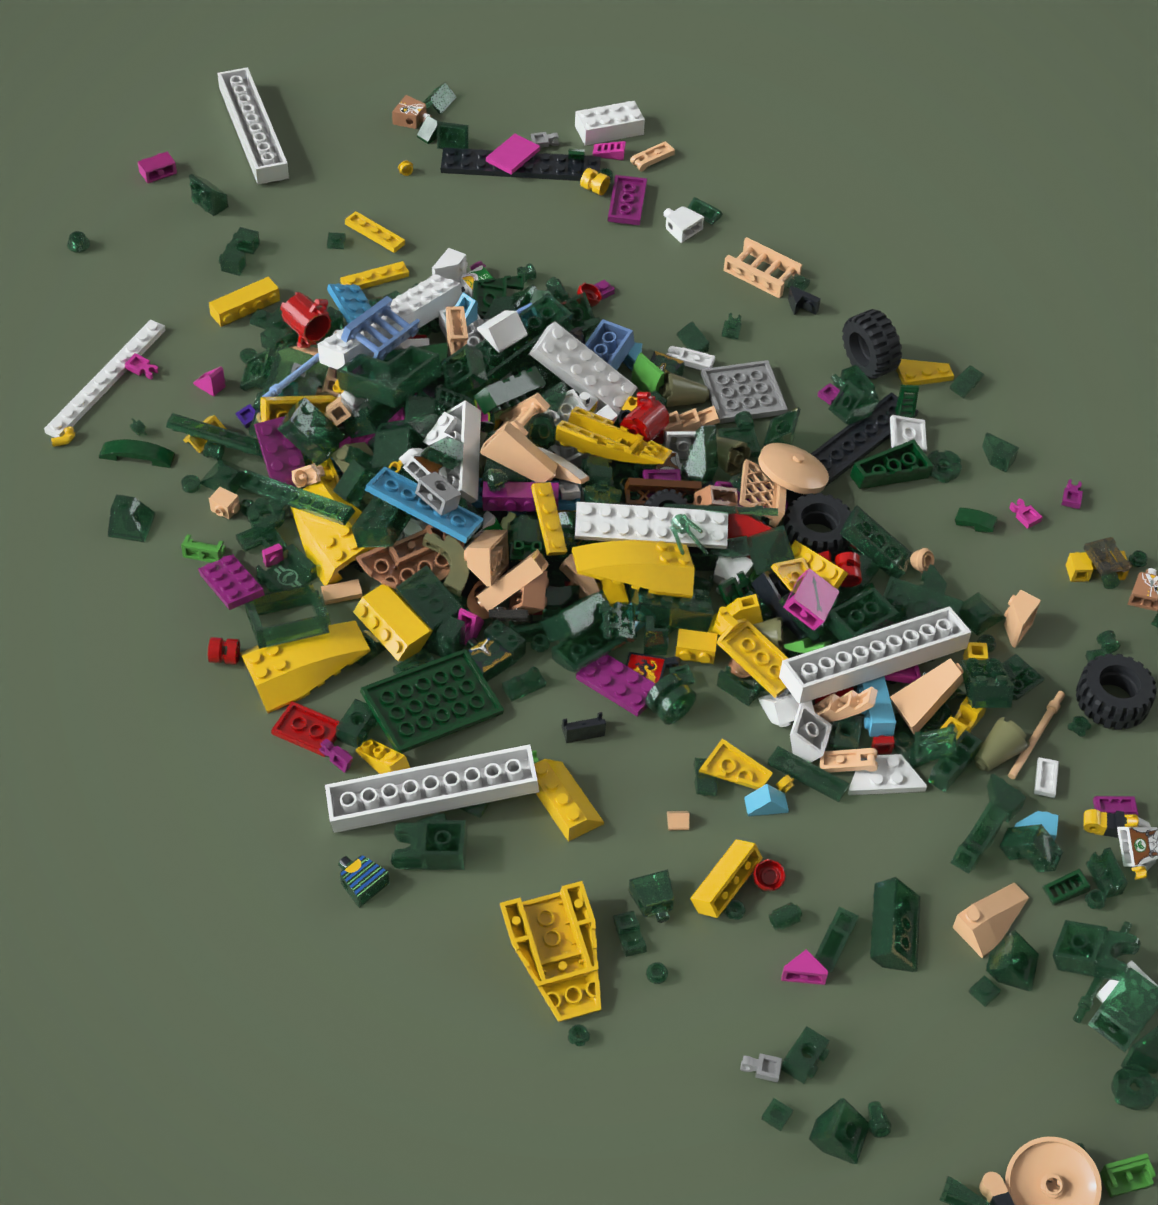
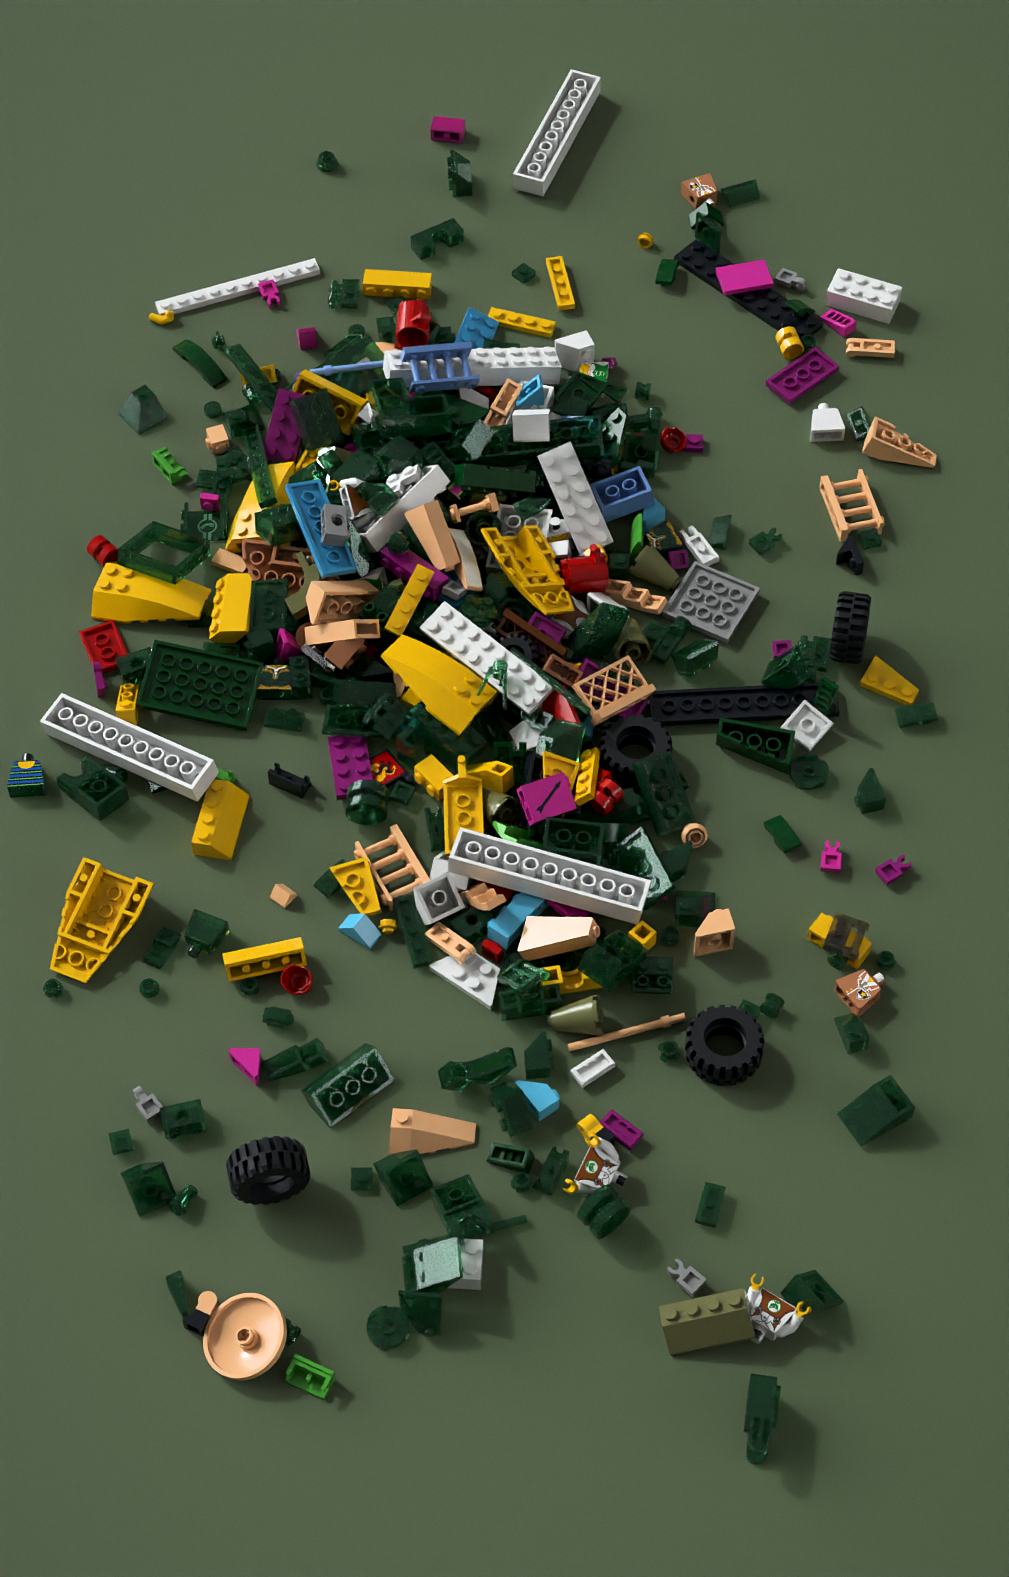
camera: 45 degrees right, 5 degrees up
(210, 329) = (349, 293): none -> clear green plate
(231, 581) = (158, 503): magenta plate -> none
(307, 475) = (285, 453): light nougat hips -> none
(338, 411) = (350, 415): light nougat brick -> none
(448, 181) = (666, 272): none -> dark green slope
(689, 373) = (678, 559): none -> magenta plate
(745, 720) = (404, 853): none -> light nougat fence
(746, 212) = (889, 445): none -> light nougat wedge
(793, 468) = (663, 689): light nougat dish -> none
(933, 1035) = (268, 1170): none -> black tyre

